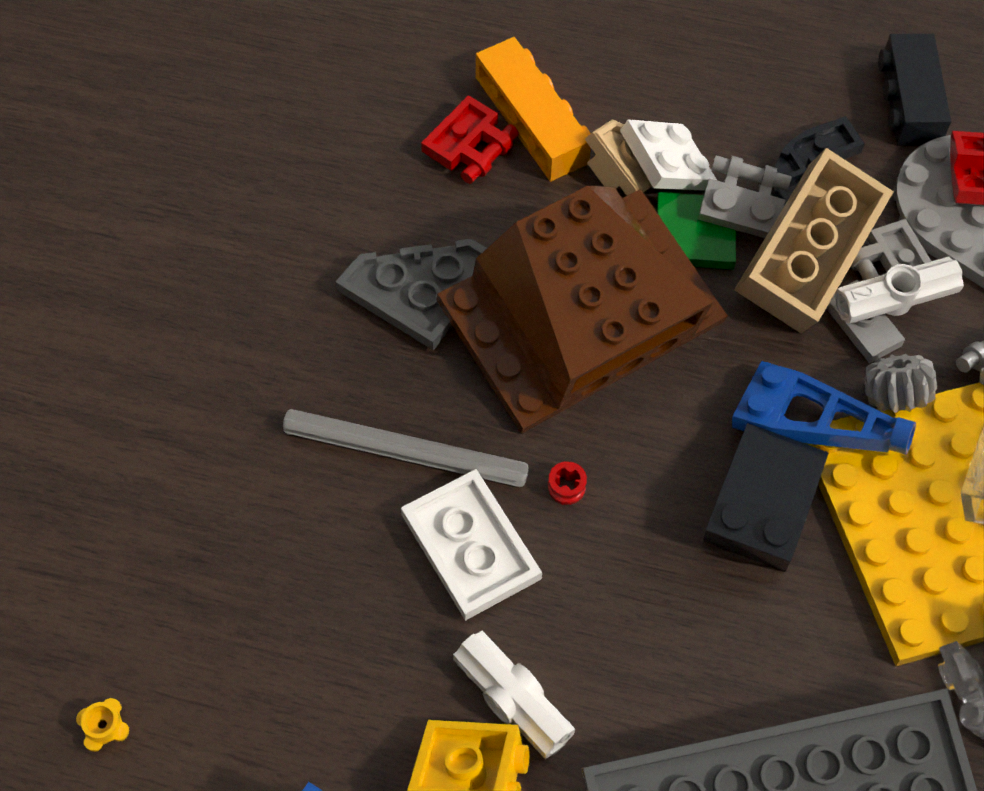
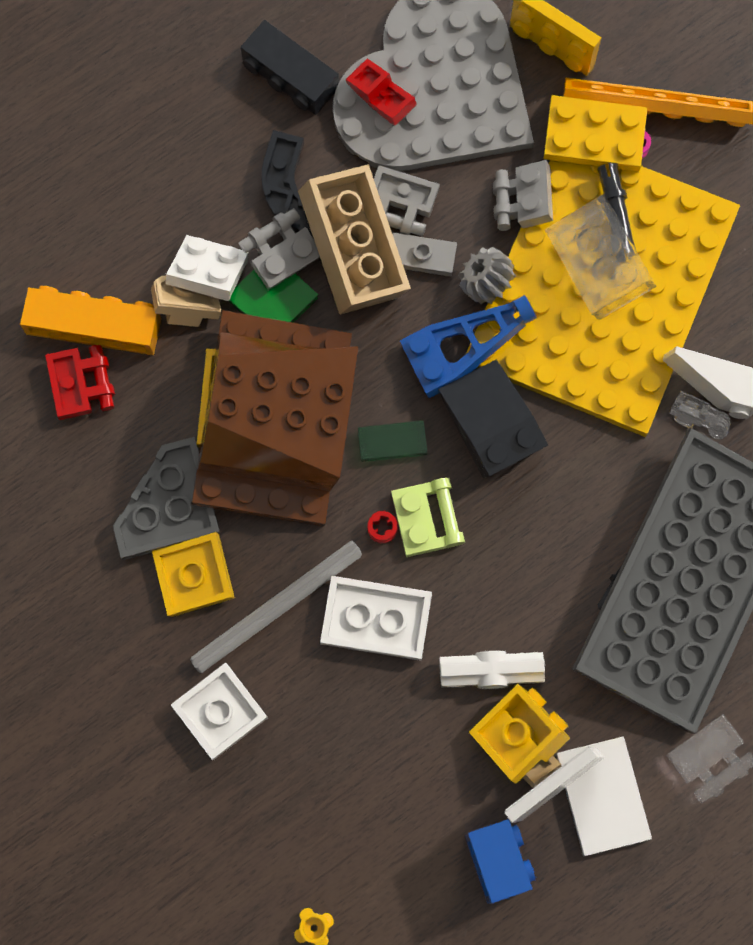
camera: 50 degrees left, 15 degrees up
(257, 472) = (219, 711): none -> white plate
(373, 354) = (193, 574): none -> yellow plate
(603, 508) = (416, 519): none -> yellowish green plate
(659, 429) = (392, 441): none -> clear green tile
(918, 283) = (434, 203): white piece -> none

